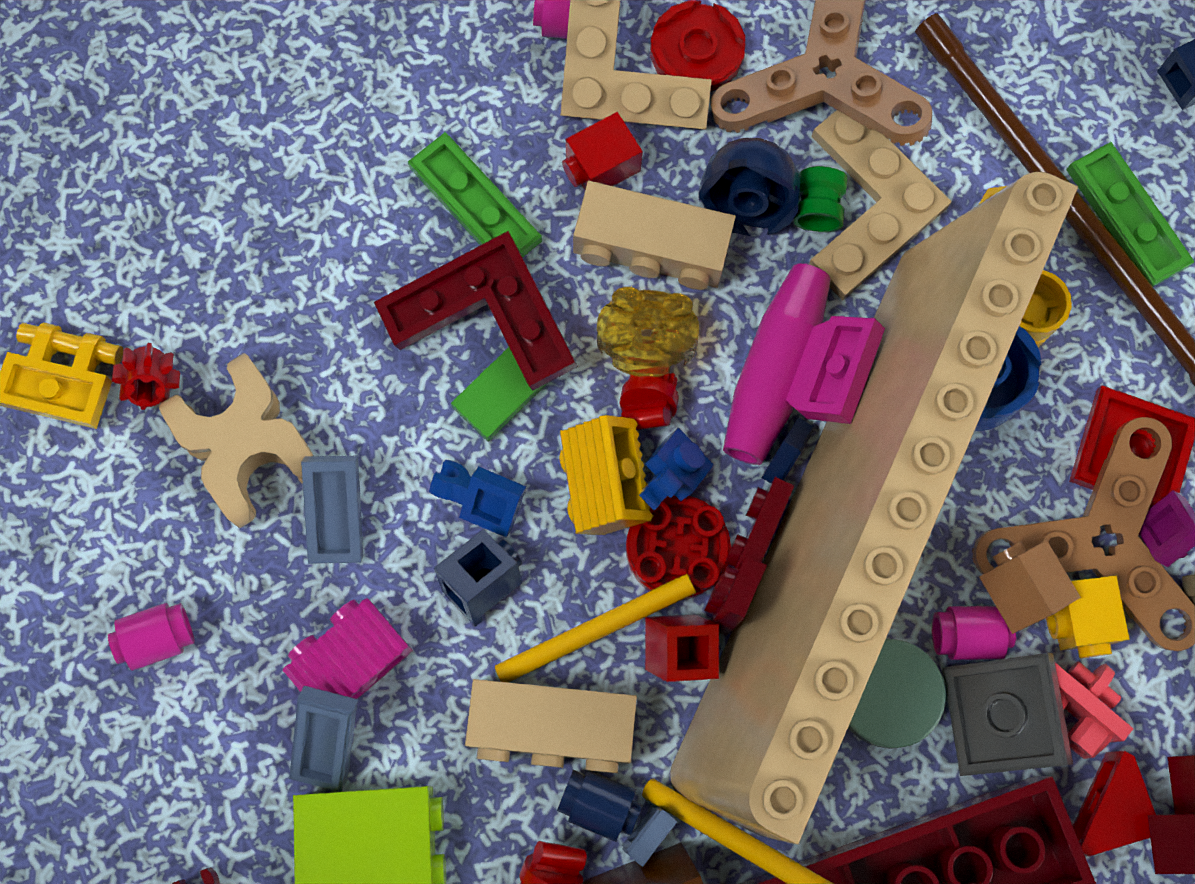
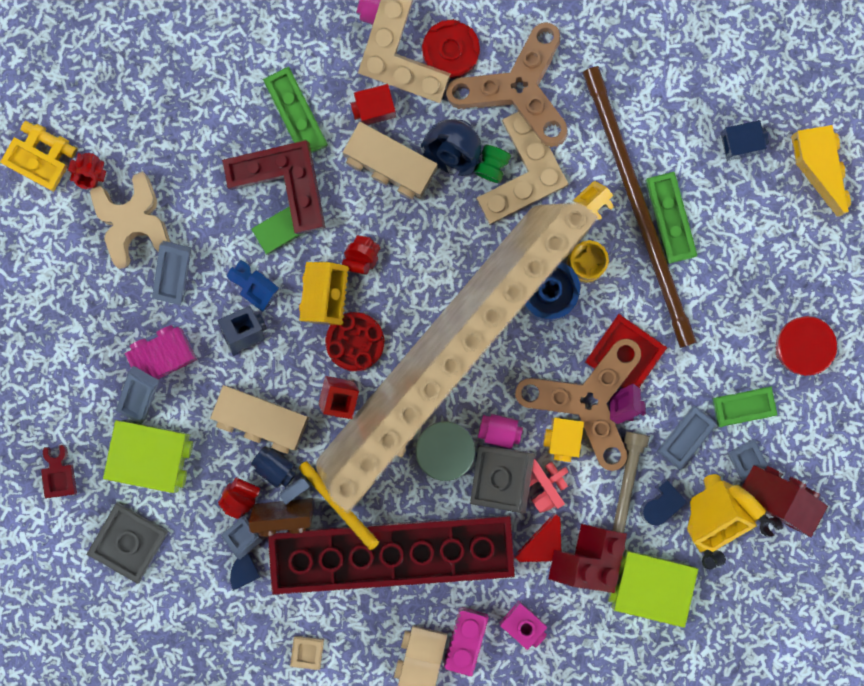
camera: 20 degrees right, 10 degrees up
(151, 635) = (59, 315): dark pink brick -> none
(595, 629) = (296, 375): yellow bar -> none
(633, 310) = (370, 202): clear yellow plate -> none
(677, 468) = (364, 299): blue plate -> none
(738, 584) = (371, 376): dark red plate -> none
(789, 451) = (430, 304): dark blue tile -> none
(799, 366) = (447, 259): dark pink plate -> none
(1028, 585) = (532, 414): medium nougat brick -> none

